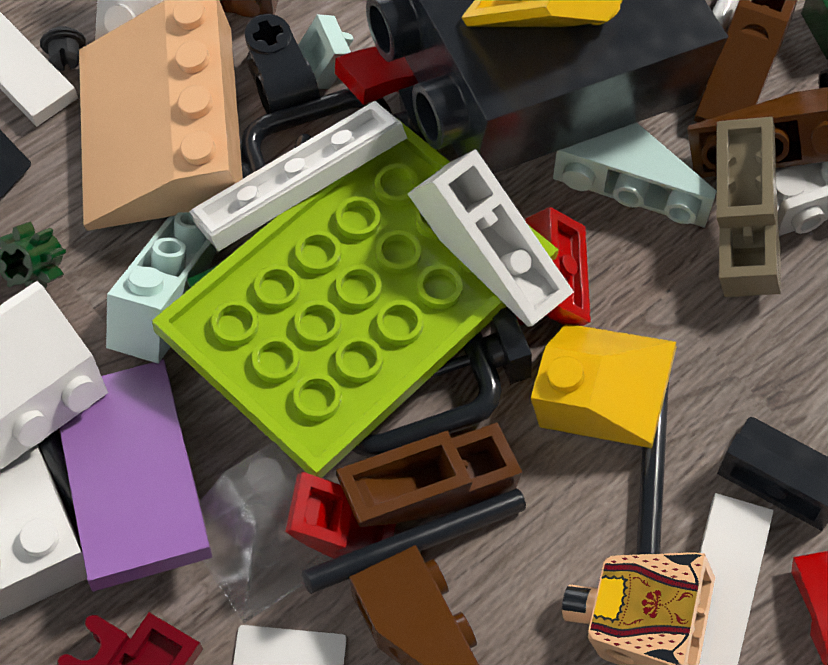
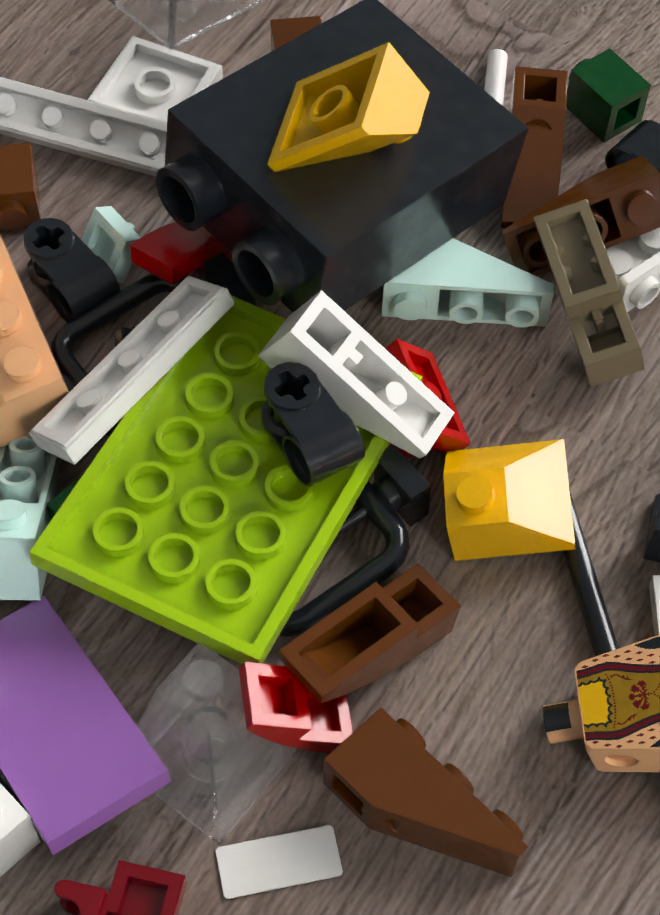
camera: 20 degrees left, 5 degrees down
(423, 536) = (385, 695): black bar -> none
(430, 269) = (308, 424): none -> black piece

